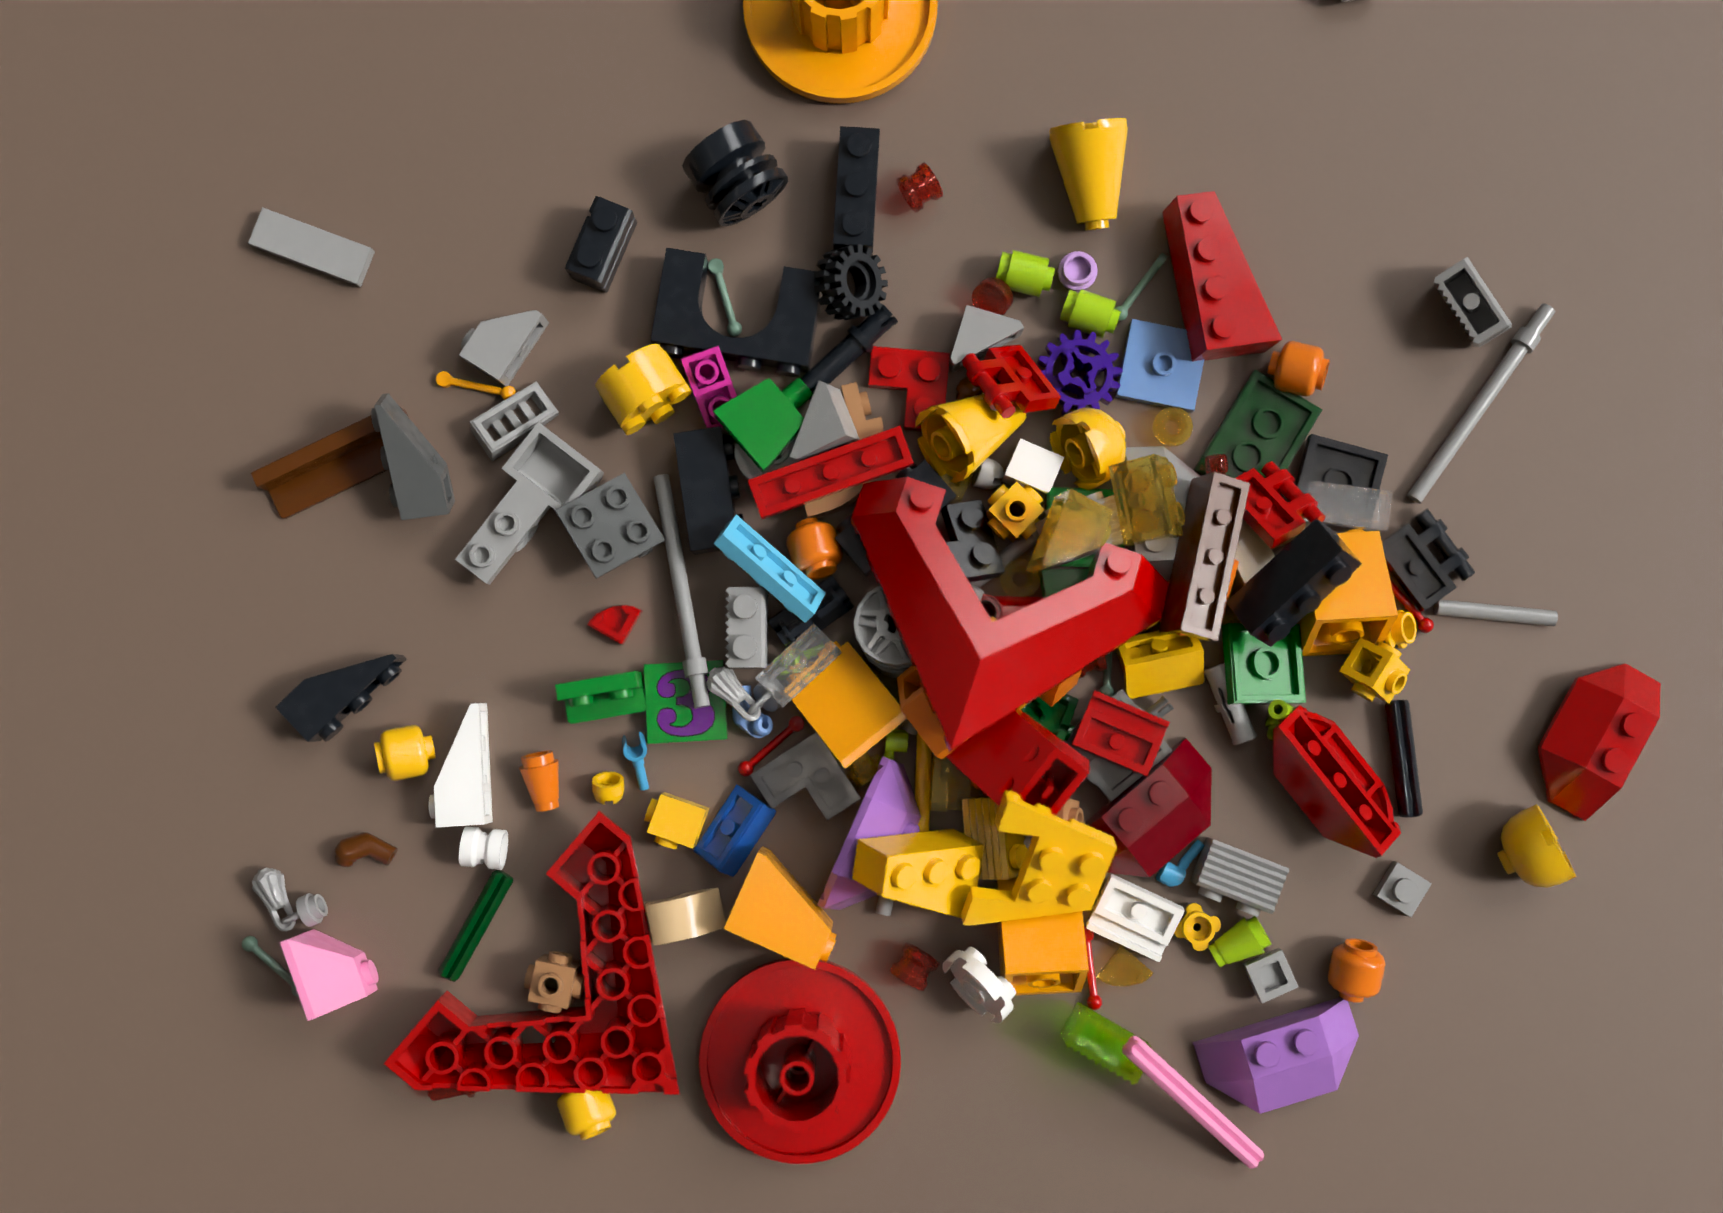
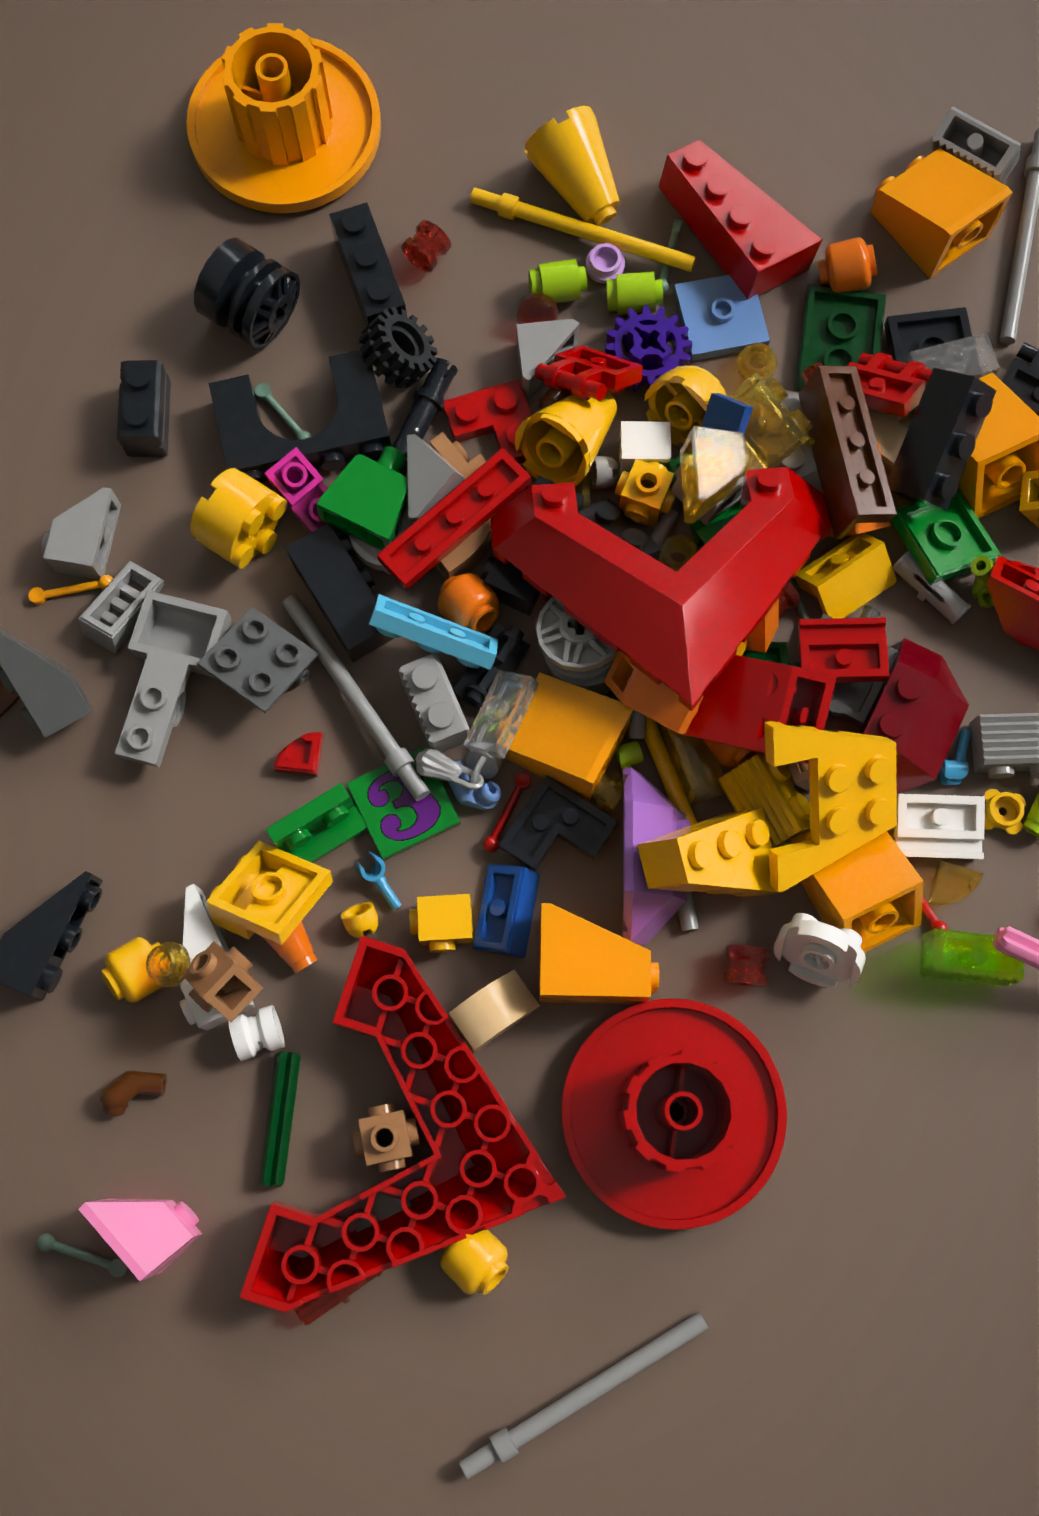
camera: 25 degrees left, 10 degrees down
(271, 889) = (48, 1172): light grey piece -> none
(422, 763) = (159, 962): none -> clear yellow plate
(467, 803) = (222, 981): none -> medium nougat brick
(536, 739) = (267, 893): none -> yellow plate
(1015, 178) = (511, 207): none -> yellow bar
(1109, 483) = (726, 414): none -> blue tile
(1408, 347) = (939, 209): none -> light orange slope

